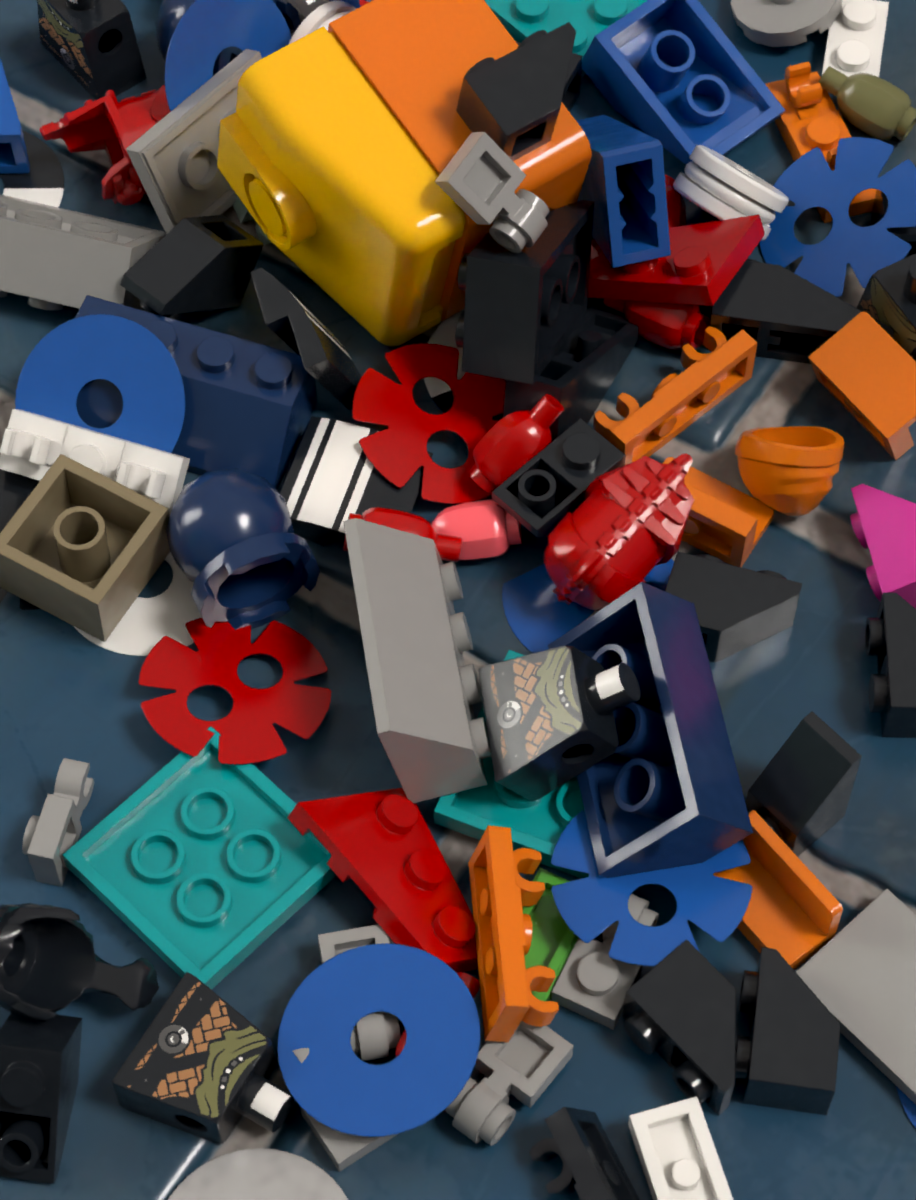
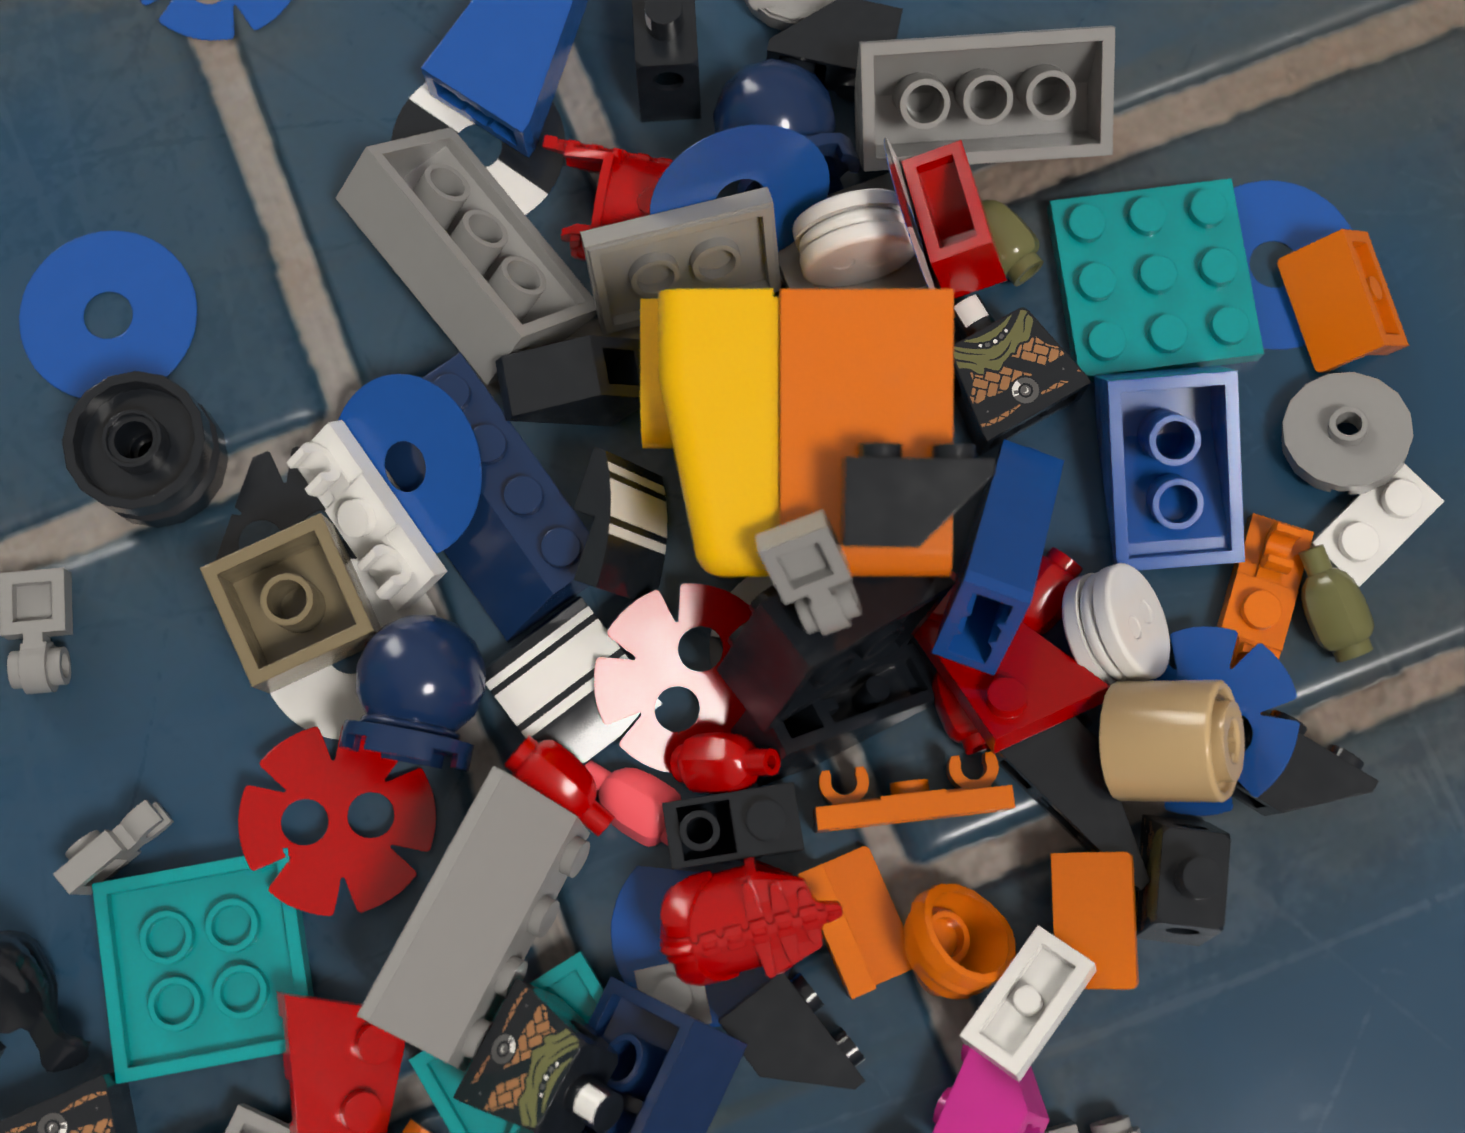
camera: 35 degrees right, 20 degrees up
(833, 217) = (1171, 741): none -> tan piece
(875, 445) = (1028, 1003): none -> white plate

